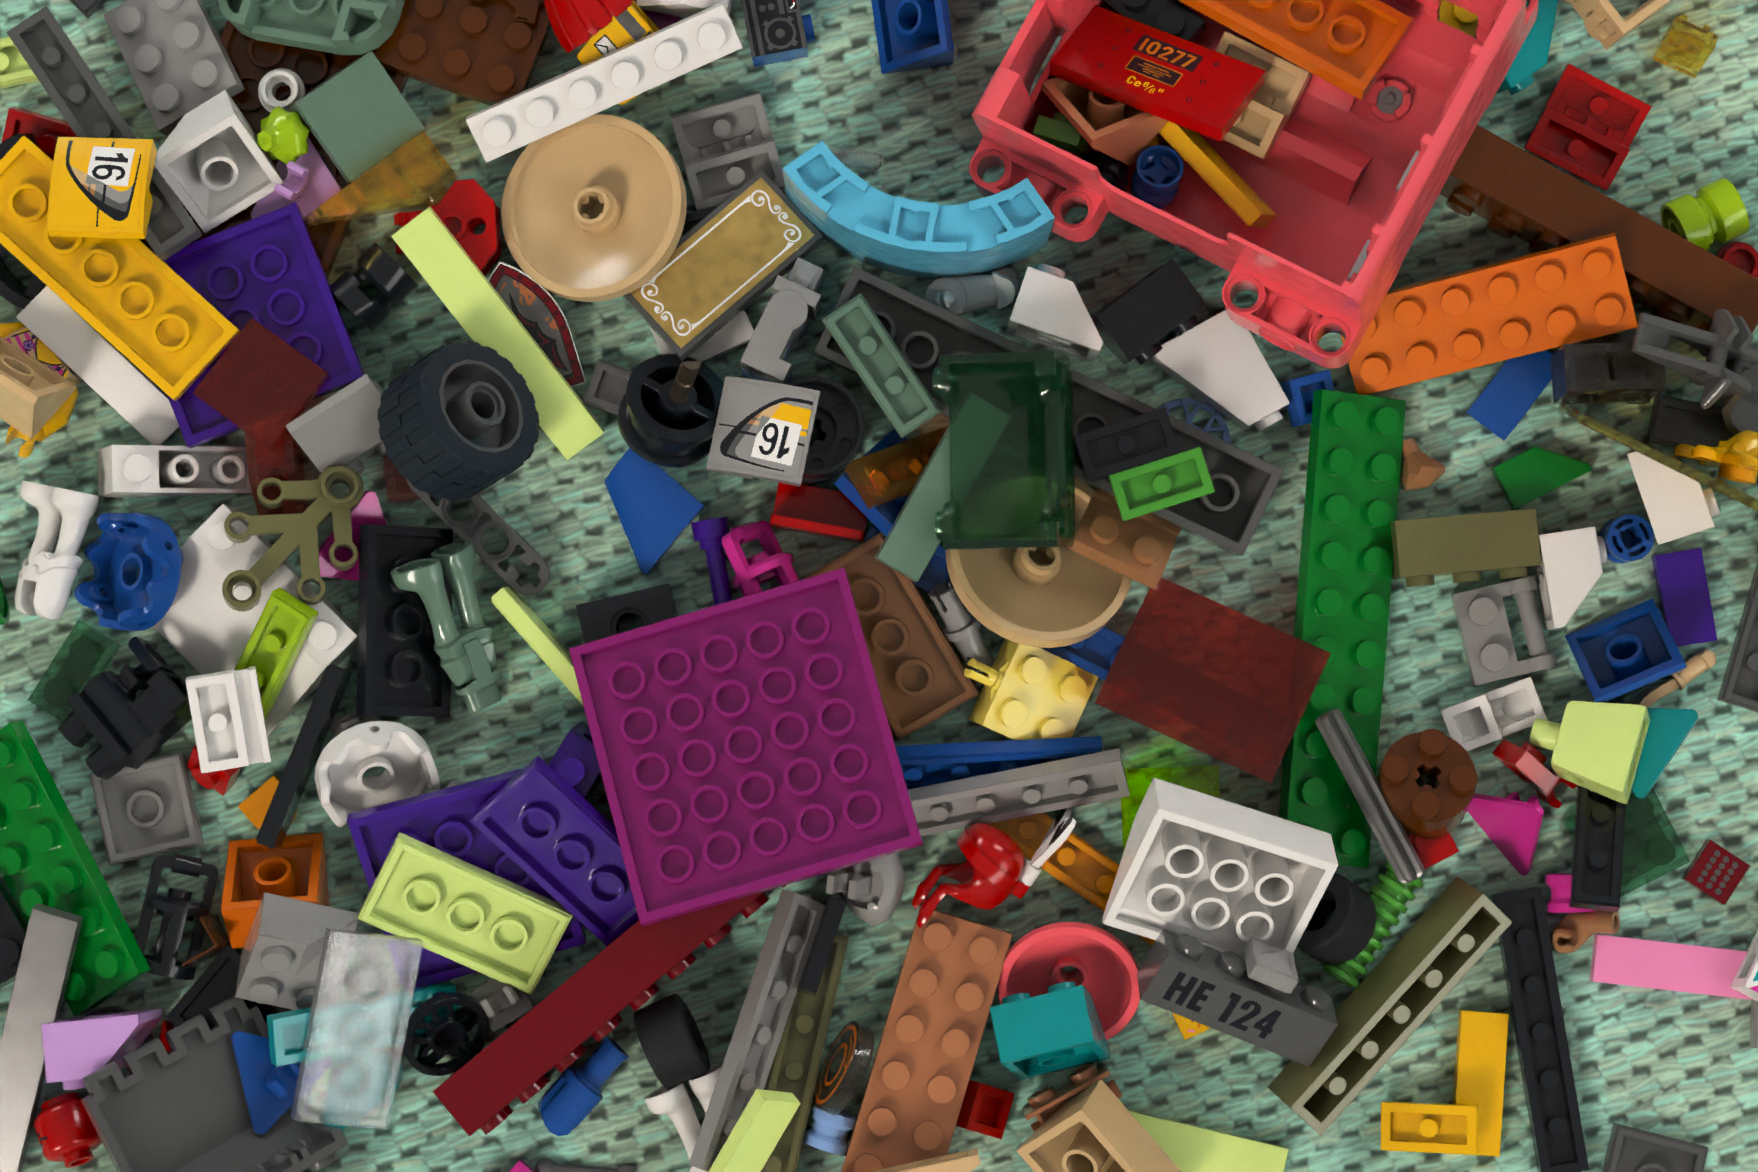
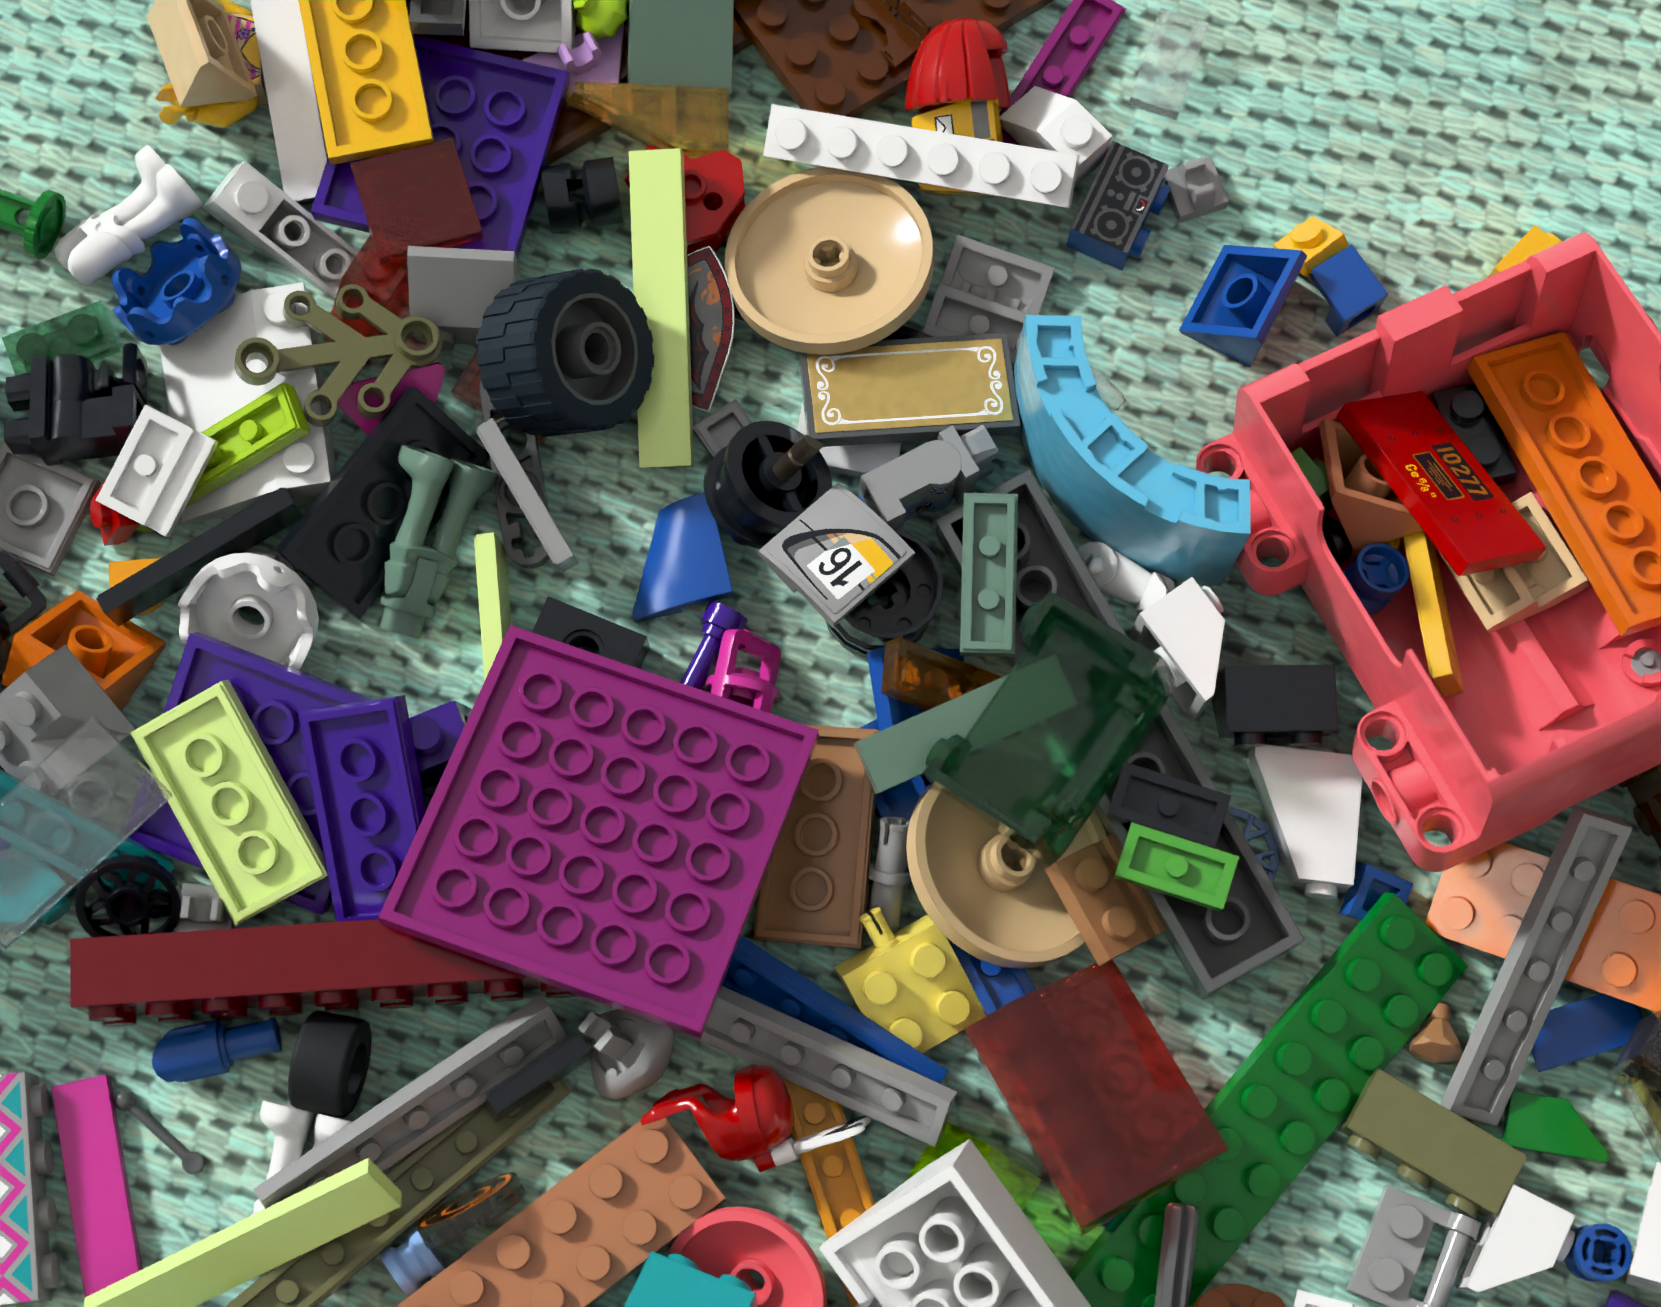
camera: 35 degrees right, 10 degrees down
(506, 544) = (526, 495): none -> light grey tile
(818, 513) = (832, 675): red panel -> none
(1454, 372) = (1536, 965): none -> light grey plate

